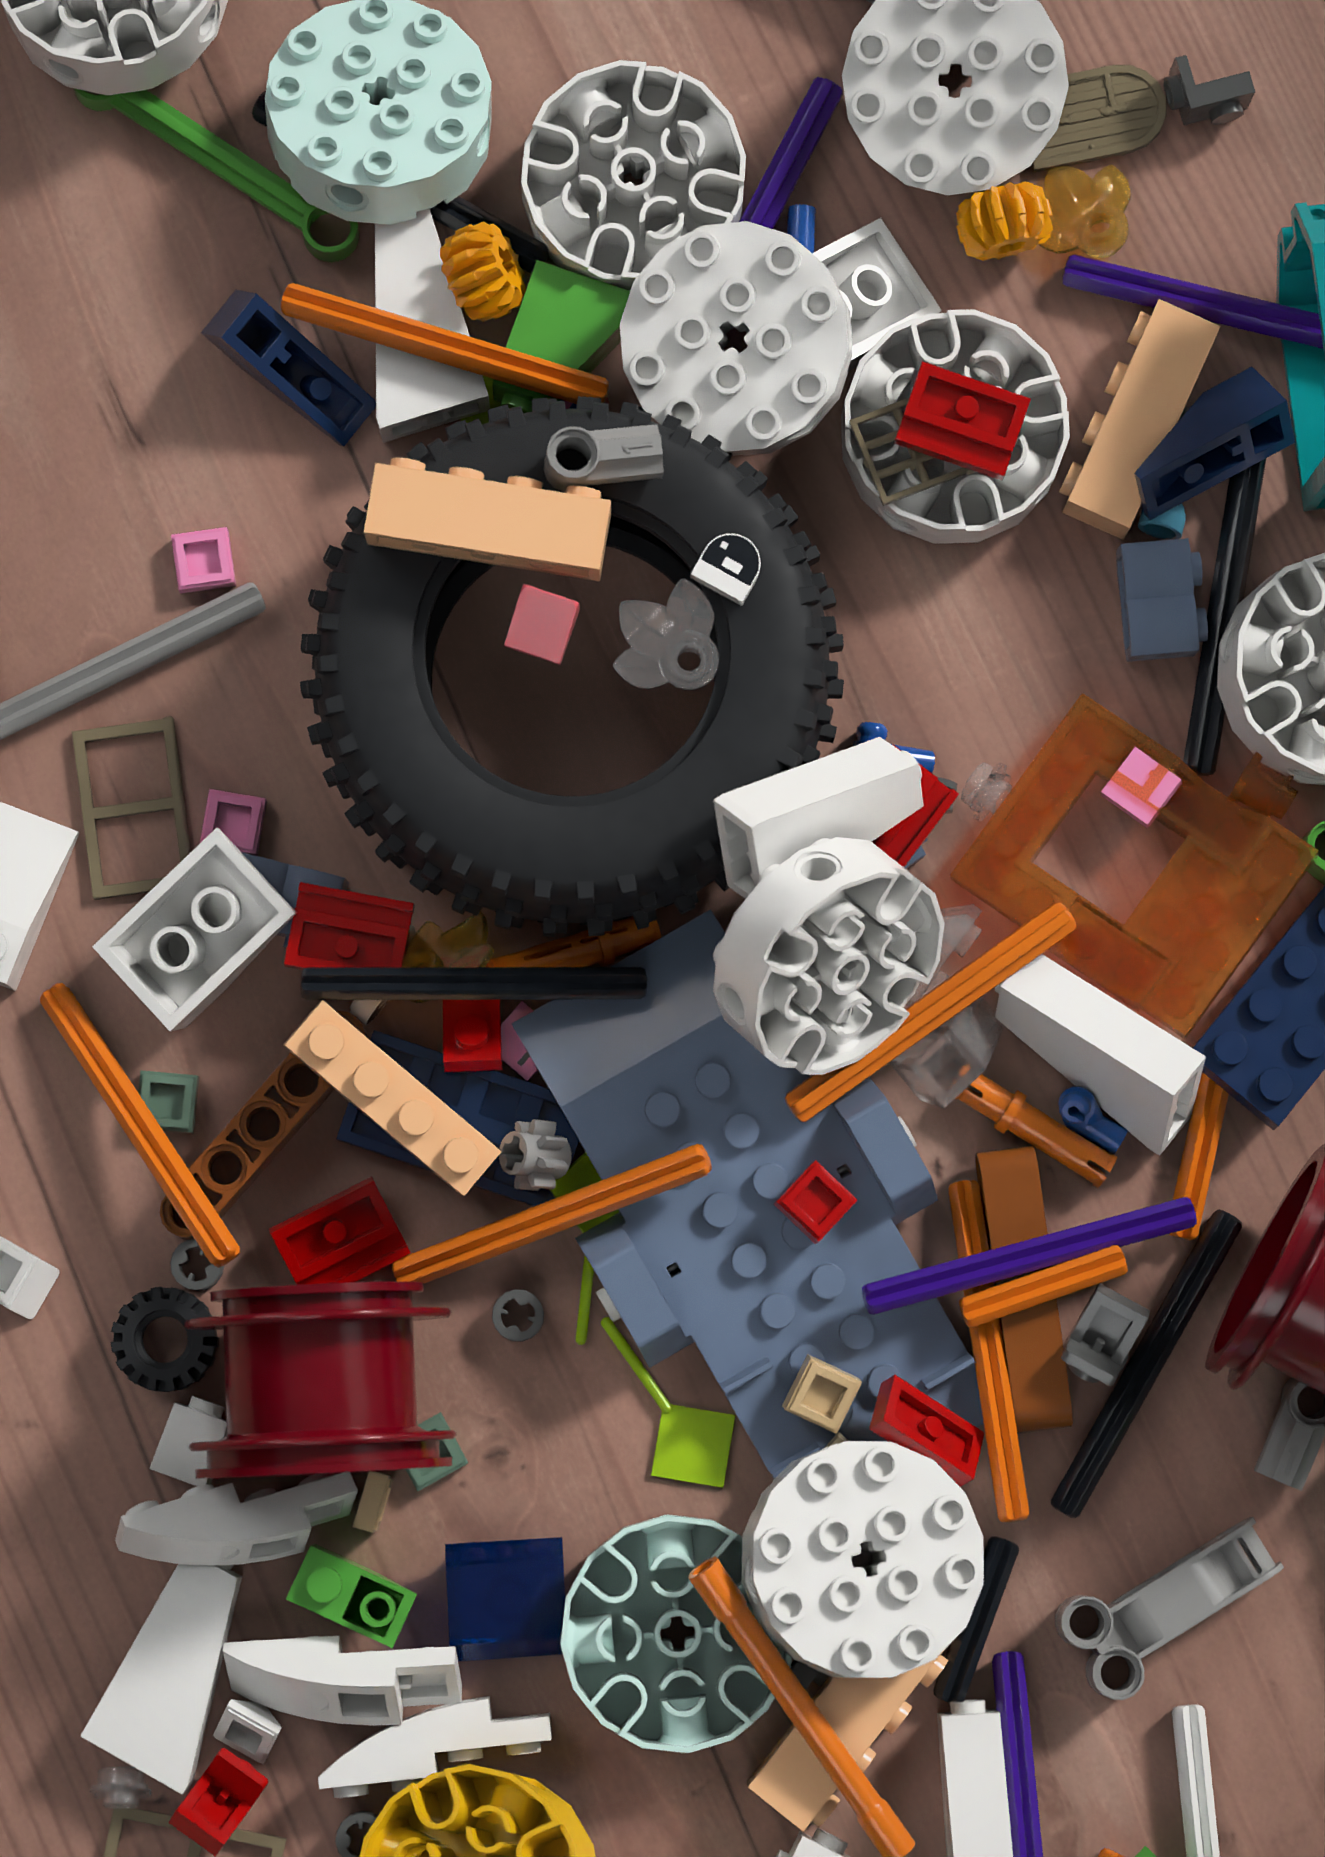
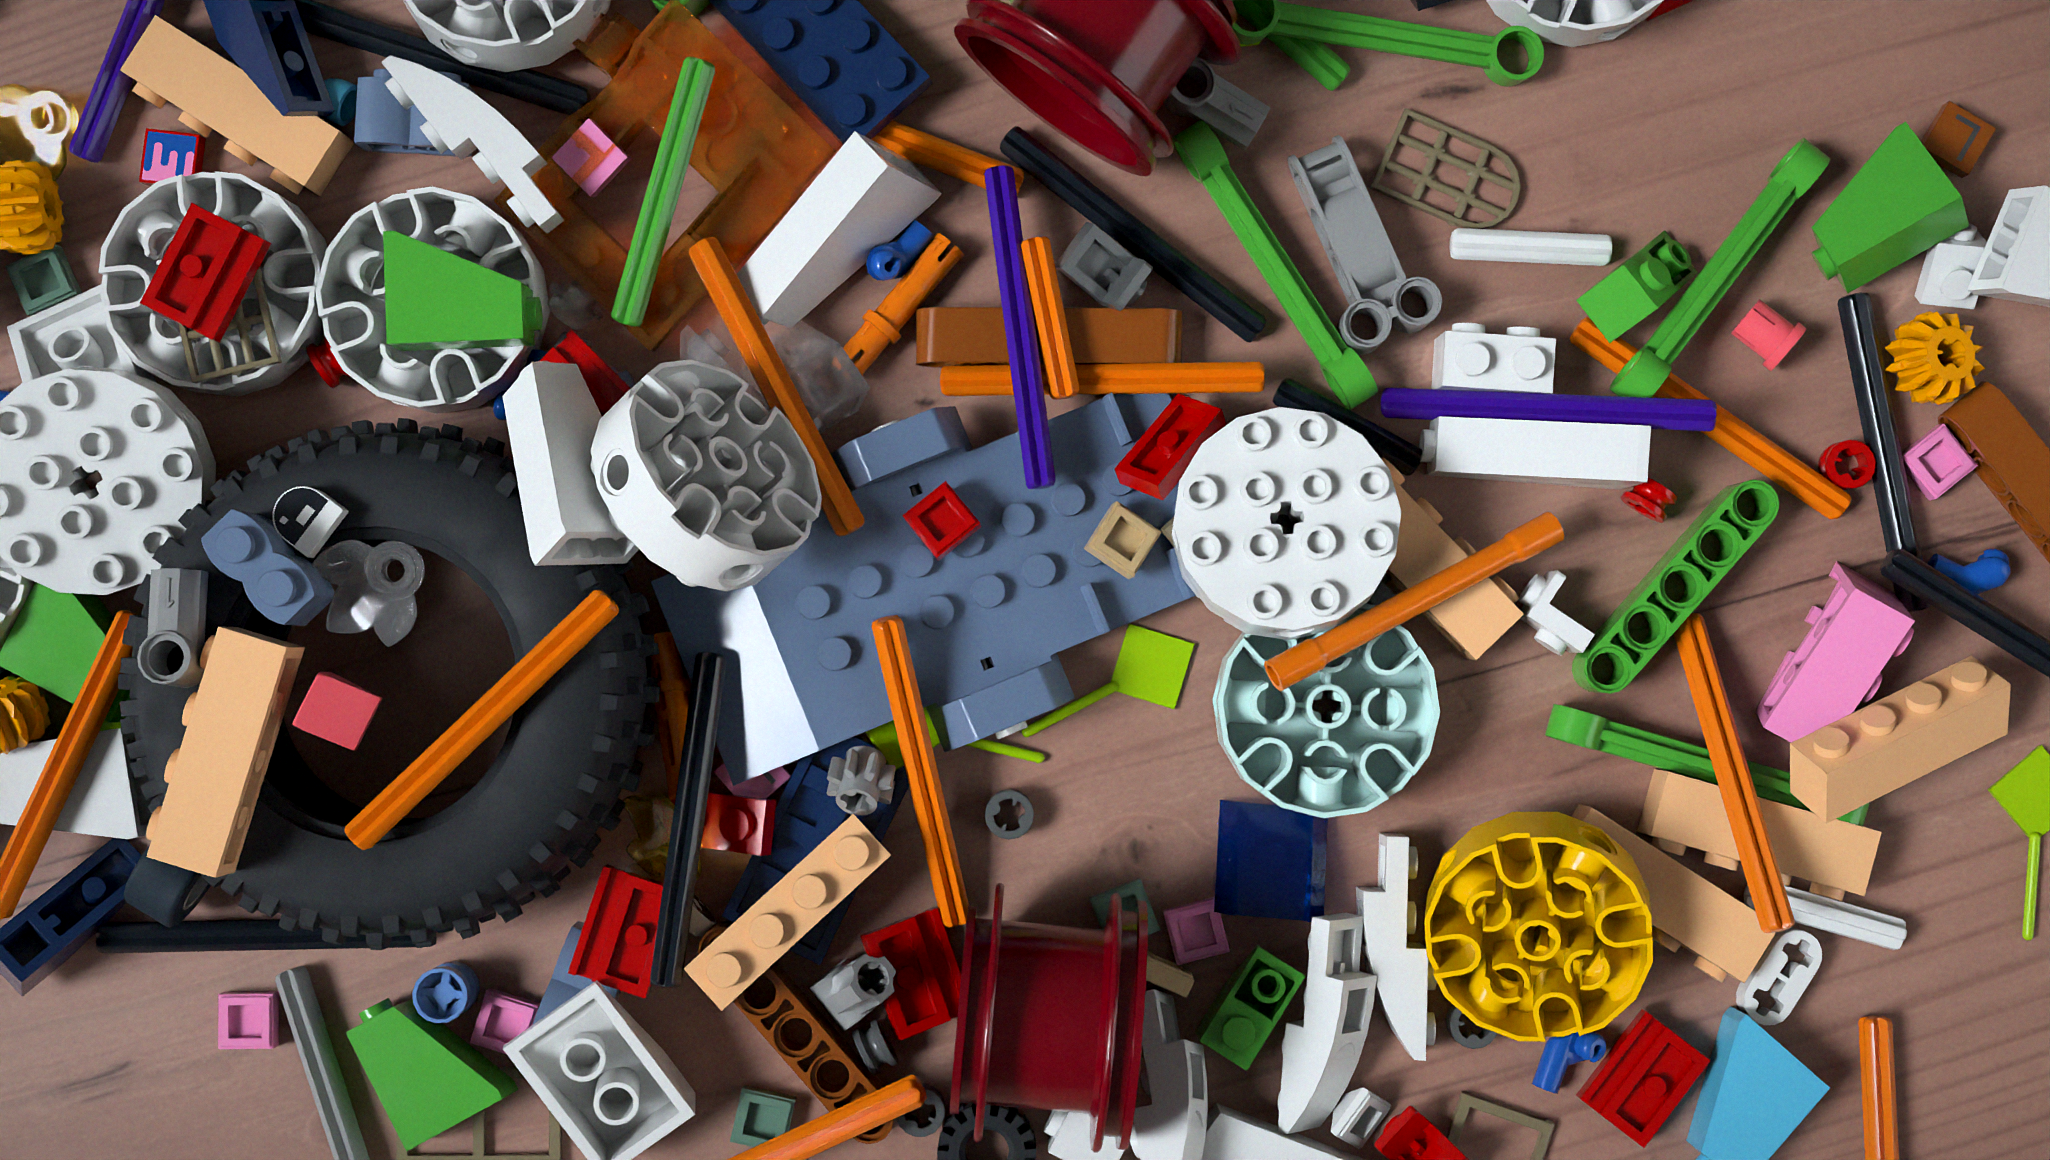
camera: 75 degrees left, 5 degrees up
(175, 748) = (424, 1071): none -> bright green slope
(256, 748) = (435, 994): none -> medium blue wheel
(257, 1208) = (875, 1047): none -> dark grey bush
(288, 539) = (219, 936): none -> black axle
(317, 1178) = (854, 988): none -> light grey piece
(339, 465) = (164, 890): none -> black wheel
(420, 1529) = (1195, 931): none -> bright pink tile
(552, 767) = (481, 720): none -> orange axle
(663, 548) = (272, 575): none -> sand blue brick
(893, 550) = (325, 363): none -> red bush
(933, 247) = (43, 279): none -> sand green tile
(969, 672) = (452, 302): none -> bright green slope
(1024, 637) = (354, 308): none -> white brick
(1045, 1597) = (1210, 166): none -> bright green piece
(1065, 1765) = (1493, 362): none -> white brick
(1079, 357) = (170, 155): none -> tile
(1115, 867) = (663, 191): none -> bright green axle
(1157, 655) = (466, 122): none -> white slope
(1252, 1670) = (1426, 179): none -> dark tan window

